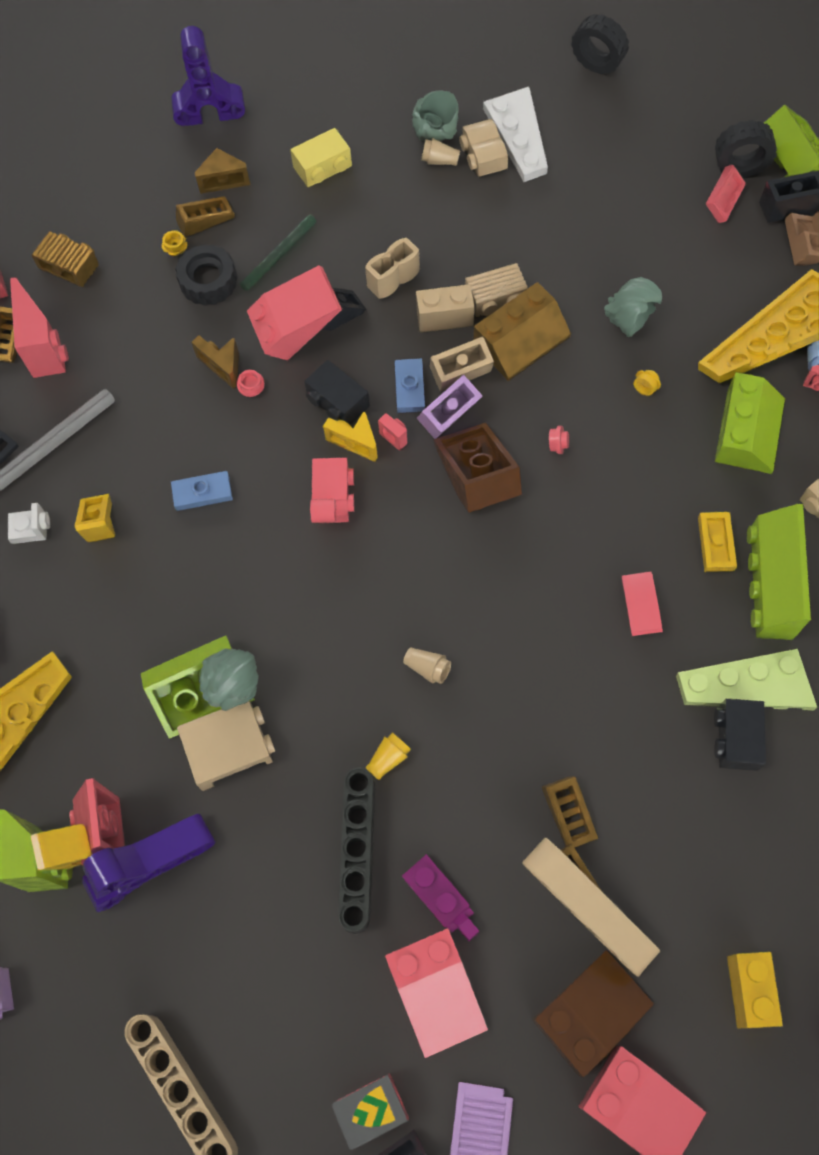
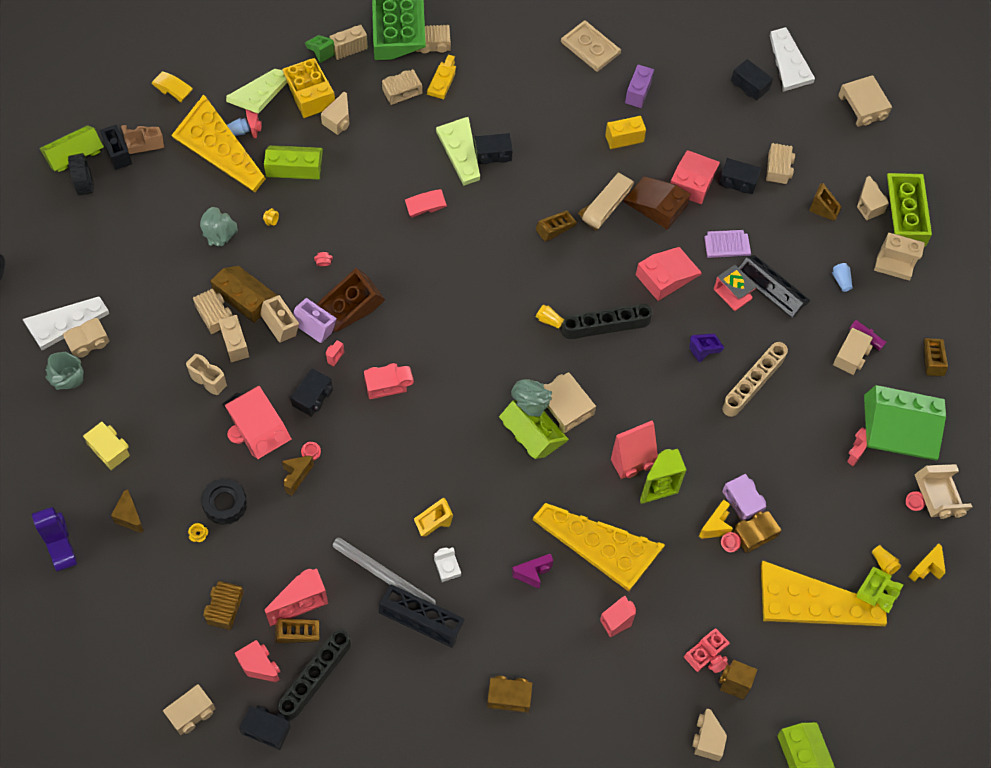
camera: 110 degrees left, 5 degrees down
(61, 847) = (657, 442): yellow slope -> none
(119, 871) = (636, 414): dark purple beam -> none
(191, 223) = (173, 530): pearl gold slope -> none
(201, 490) = (398, 462): medium blue plate -> none
(266, 1016) = (705, 344): none -> dark purple slope
(278, 252) = (195, 460): clear green bar -> none
(356, 439) = (342, 372): yellow slope -> none
(409, 385) = (295, 353): medium blue plate -> none
(429, 665) = (489, 305): tan cone -> none
(439, 153) = (93, 368): tan cone -> none
(440, 897) = (619, 278): magenta hinge -> none
(717, 542) = (377, 170): yellow plate -> none
(725, 193) = (113, 187): coral plate -> none
(779, 573) = (394, 134): lime slope -> none

